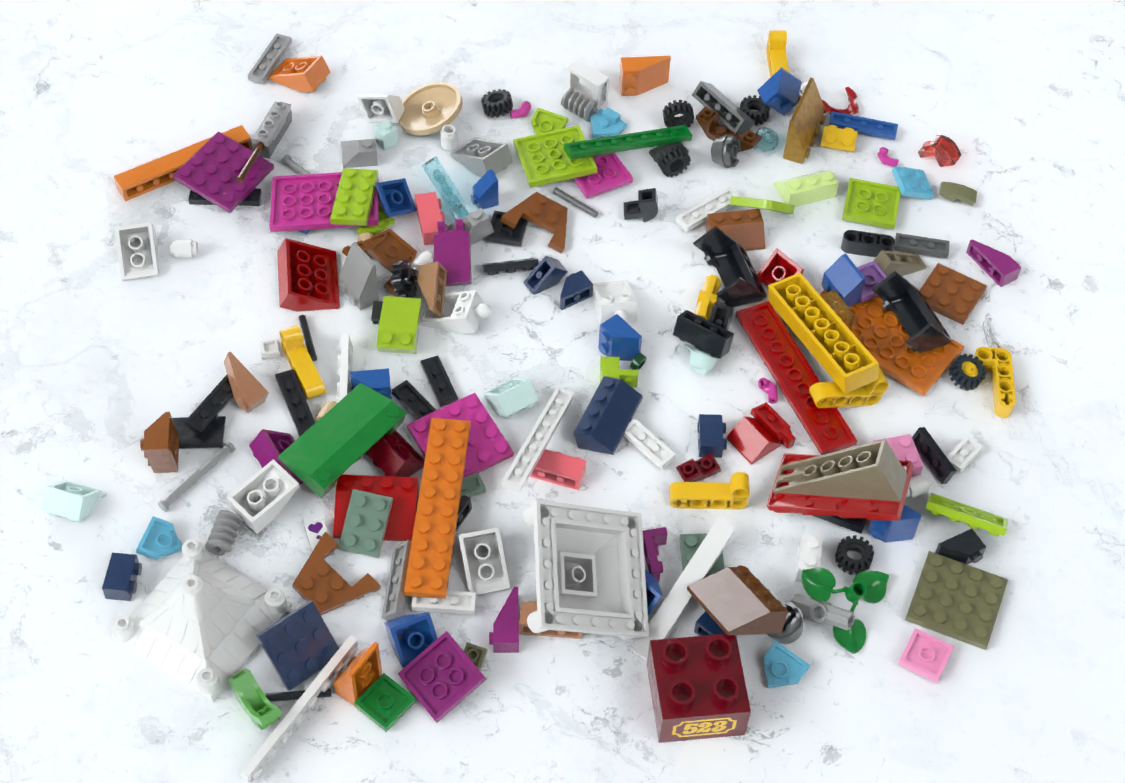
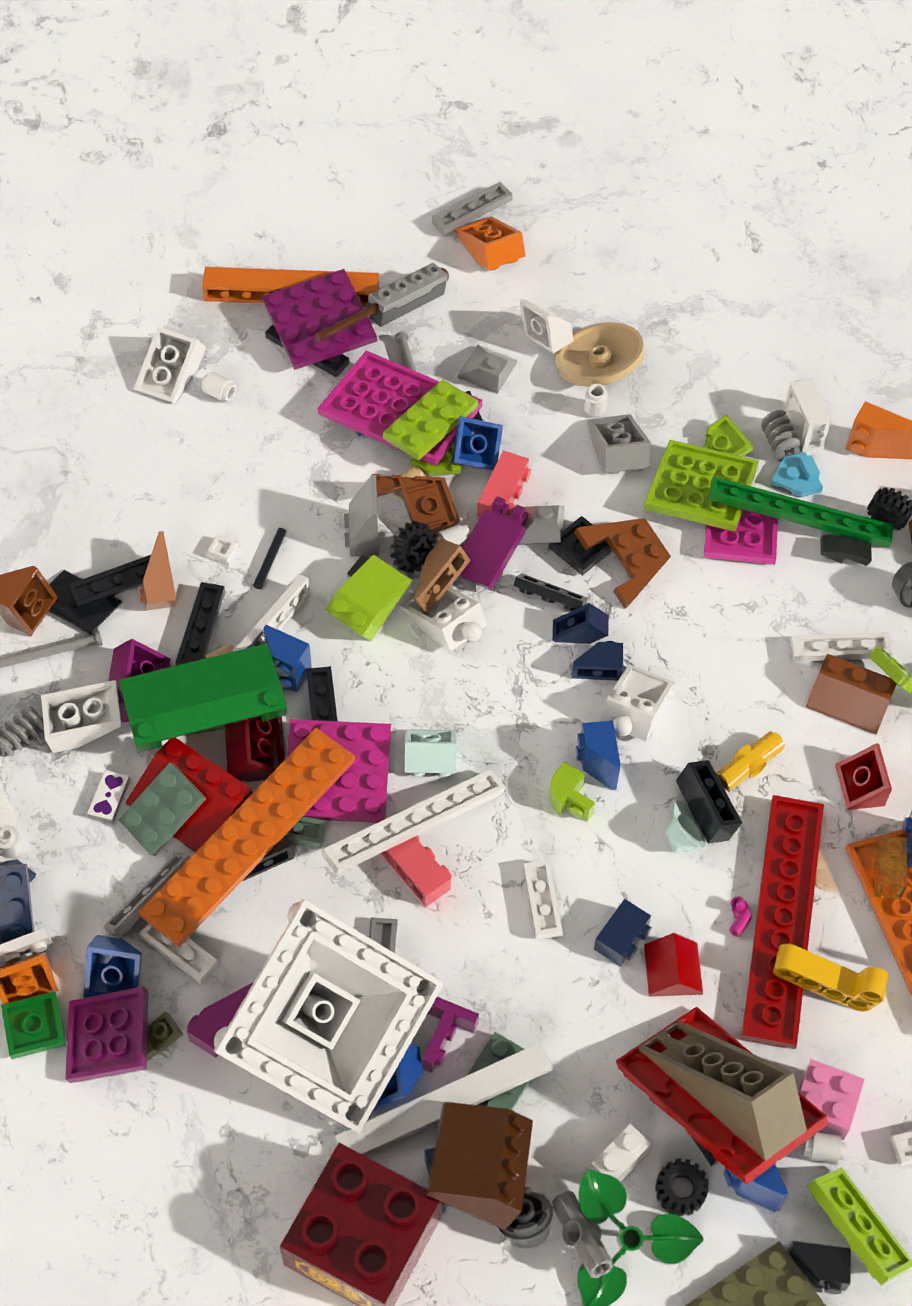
camera: 35 degrees right, 5 degrees up
(301, 362) = (238, 584): yellow beam -> none
(307, 277) = (319, 487): red slope -> none
(324, 585) = (72, 854): dark orange wing -> none
(386, 134) = (529, 361): light aqua brick -> none
(439, 381) = (370, 687): black tile -> none
(446, 188) = (545, 462): clear light blue brick -> none
(484, 561) = (252, 927): white slope -> none
(486, 191) = (586, 488): blue slope -> none
(497, 103) = (684, 385): black tyre -> none
(523, 110) = (709, 410): dark pink arm -> none
(575, 202) = (687, 554): bar -> none
(607, 416) = (518, 838): dark blue slope -> none
(638, 362) = (607, 792): dark green tile -> none
(645, 207) = (758, 602): black brick -> none
(673, 161) = (840, 564): black tyre -> none
(698, 470) = (579, 966): dark red slope -> none
(711, 495) = (565, 1005): yellow beam -> none
(722, 314) = (749, 791): black slope -> none
(733, 266) = (815, 740): black windscreen -> none
(774, 424) = (710, 963): red hinge -> none
(783, 666) = (488, 1270): medium azure plate -> none
(823, 333) = (848, 886): yellow brick -> none
(933, 455) = (879, 1122): black plate -> none

